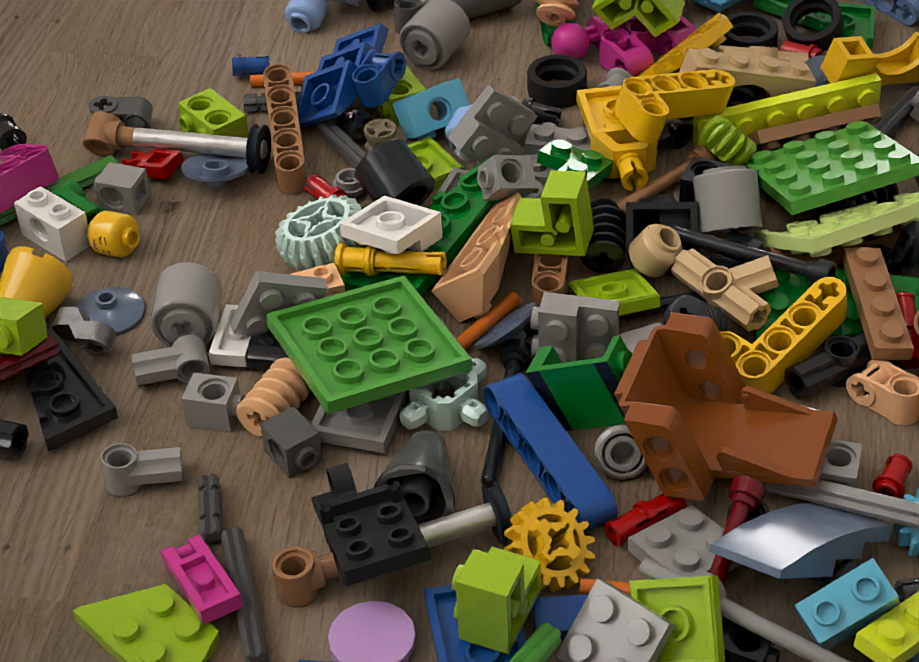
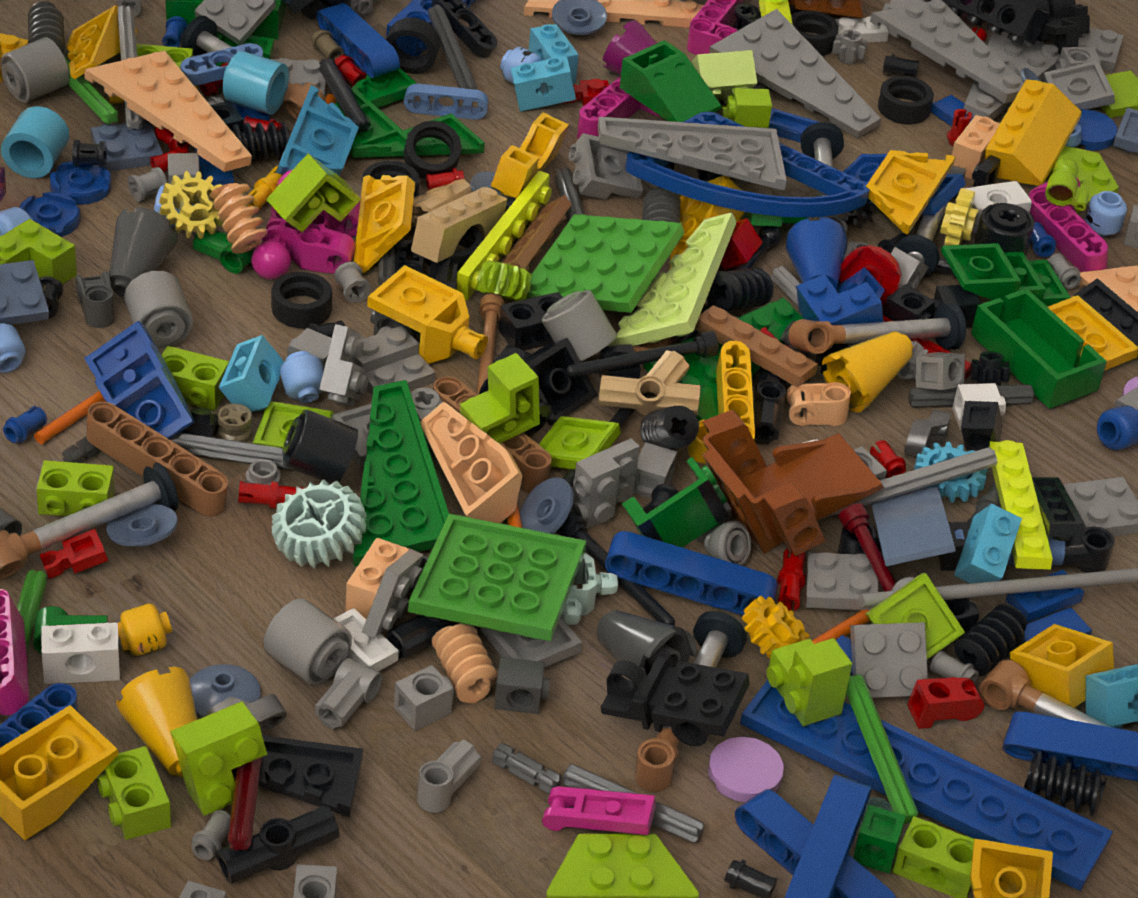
camera: 55 degrees left, 0 degrees up
(122, 188) = (88, 589): light grey brick -> none
(374, 260) = (398, 518): yellow pin -> none
(378, 76) = (189, 370): blue piece -> none
(394, 226) = (393, 480): white plate -> none
(505, 176) = (424, 394): light grey brick -> none
(564, 157) = (438, 356): green plate -> none
(652, 99) = (450, 274): yellow beam -> none
(655, 250) = (575, 392): tan head -> none

